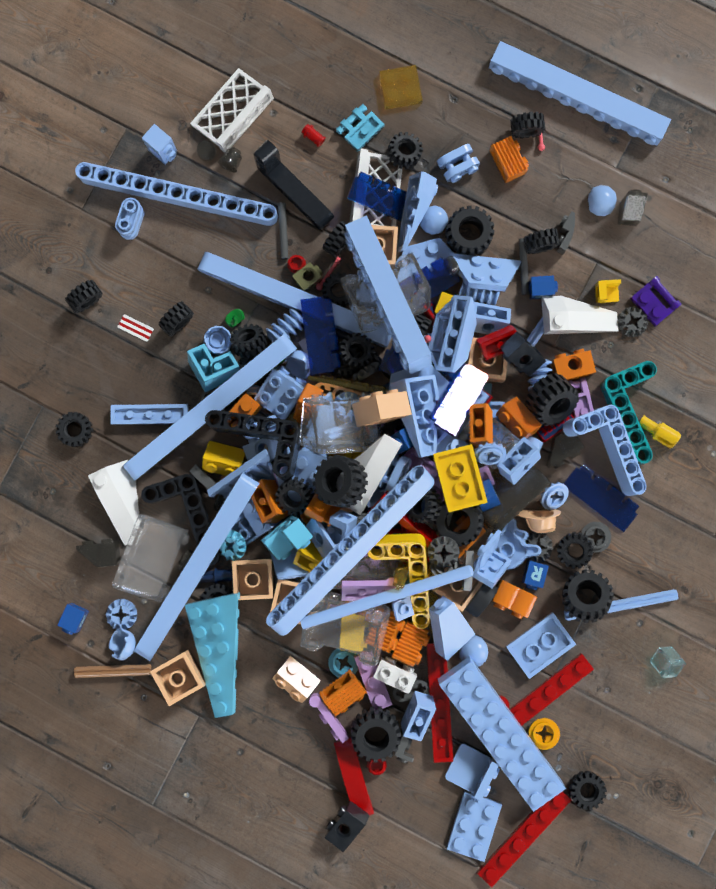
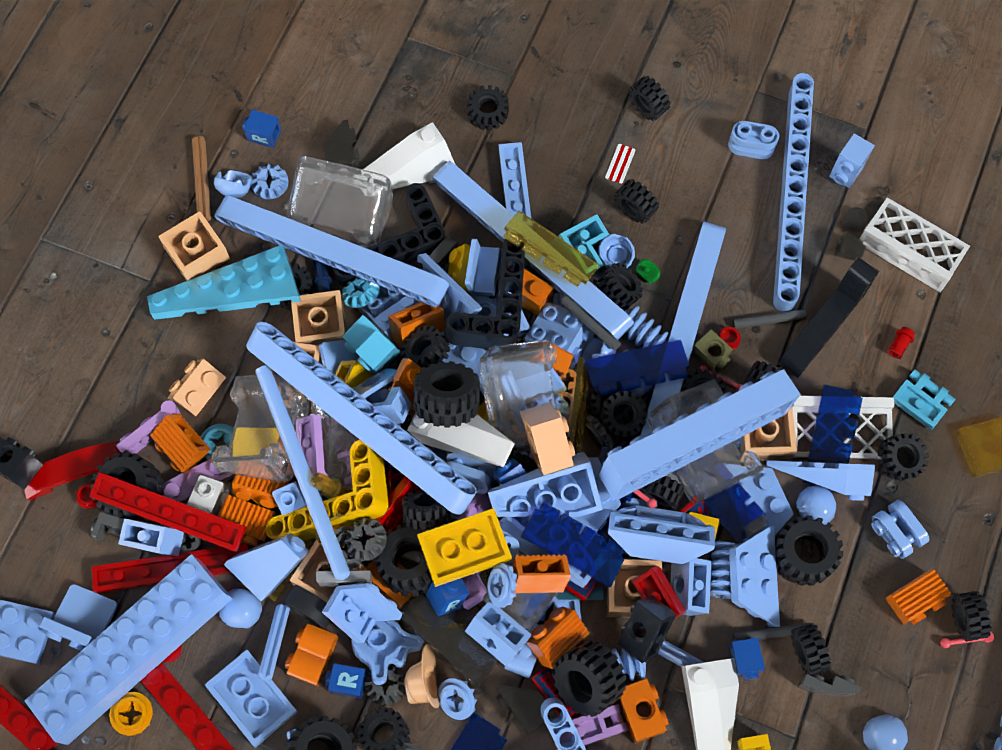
camera: 85 degrees right, 15 degrees down
(214, 393) = (556, 251): none -> clear yellow windscreen
(227, 445) = (482, 269): none -> light blue panel
(280, 367) = (590, 322): none -> dark grey bar
(404, 702) = (168, 511): none -> red plate
(503, 626) = (273, 642): none -> light blue axle

